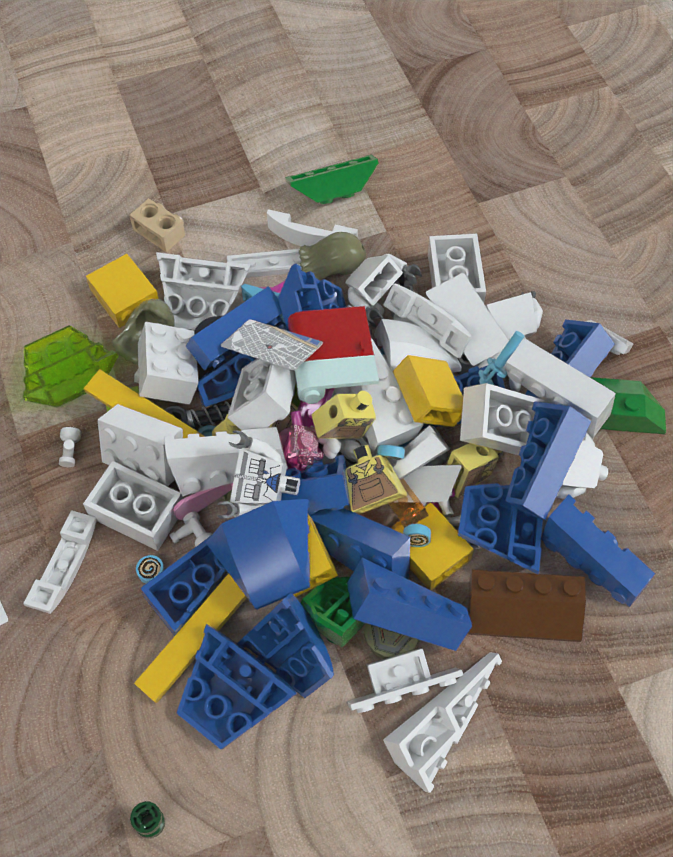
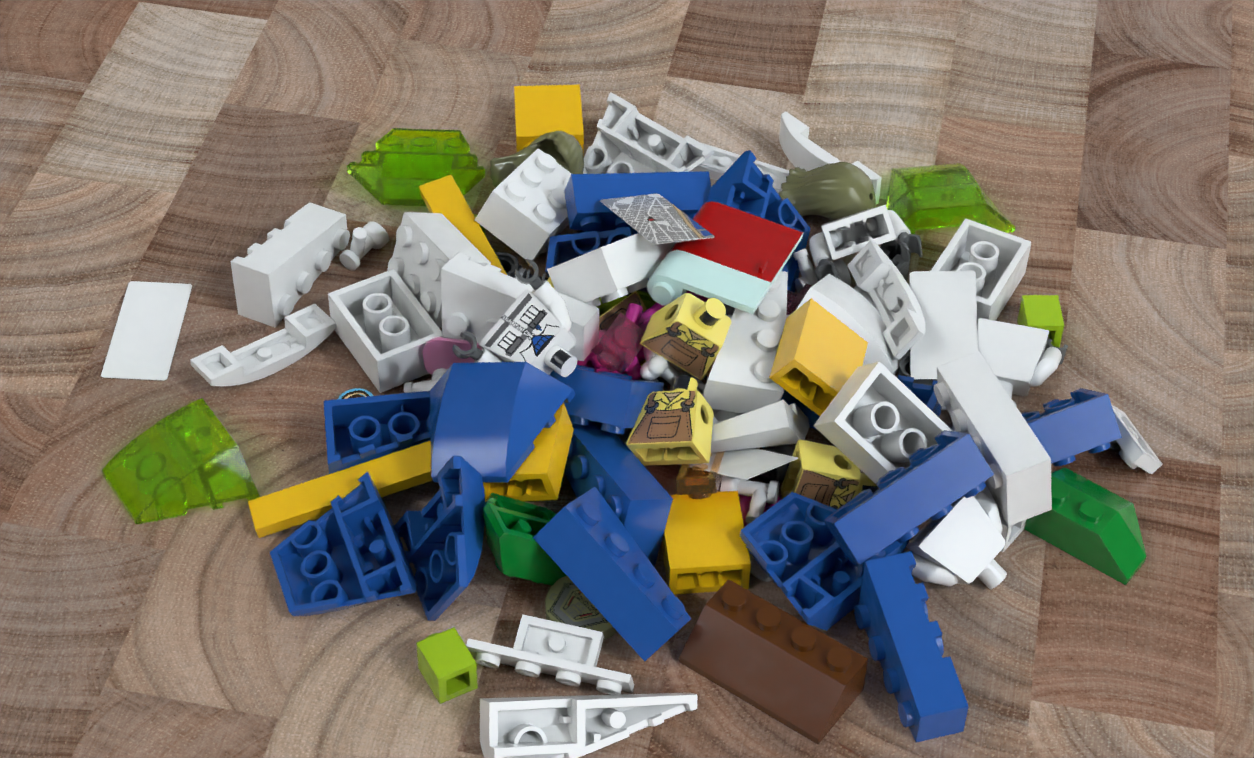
camera: 30 degrees right, 15 degrees down
(32, 487) = (288, 263): none -> white wedge
(68, 683) = (179, 467): none -> clear neon green wedge
(152, 823) = (155, 633): dark green wheel -> none
(157, 224) = (643, 76): tan brick -> none
(334, 180) = (894, 117): green wedge -> none
(343, 726) = (447, 665): none -> lime brick
(391, 452) = (720, 400): medium azure tile -> none
(393, 224) = (941, 198): none -> clear neon green wedge
(419, 535) = (687, 508): medium azure tile -> none
(497, 365) = (928, 374): medium azure piece -> none
(508, 281) = (1042, 313): none -> lime brick

